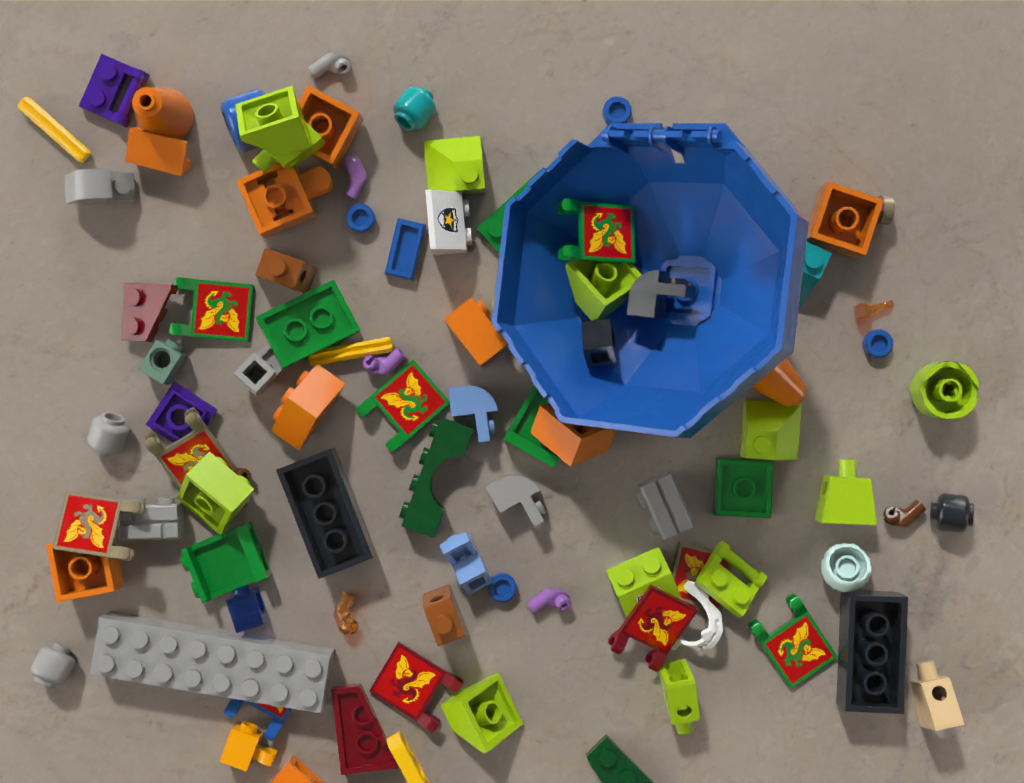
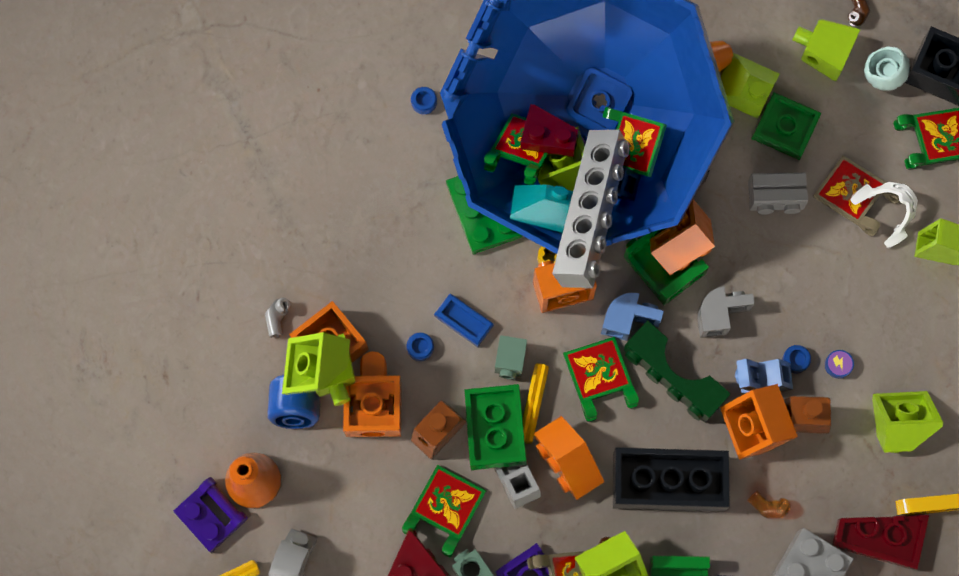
camera: 70 degrees left, 15 degrees down
(157, 152) = (284, 493): orange panel -> none
(357, 176) = (381, 333): medium lavender arm -> none
(384, 310) = (510, 357): none -> sand green brick
(384, 365) = (557, 379): medium lavender arm -> none
(410, 682) = (854, 475): flag -> none
(414, 108) = (347, 260): teal head -> none
(415, 575) = (758, 421): none -> orange brick
(447, 222) = (457, 272): white slope -> none
(455, 165) = (412, 248): lime slope -> none
(514, 630) = (839, 364): none -> tile
(538, 276) = (541, 205): none -> teal slope
(550, 597) = (821, 321): medium lavender arm -> none
(561, 317) = (591, 209): none -> light grey brick
(622, 252) = (548, 133): none -> dark red wing
(635, 575) = (843, 235): lime slope -> none
(647, 343) = (643, 139): none -> flag
(650, 293) = (589, 119): brick -> none
(656, 622) = (879, 239): flag -> none
(725, 586) = (865, 170): lime plate -> none

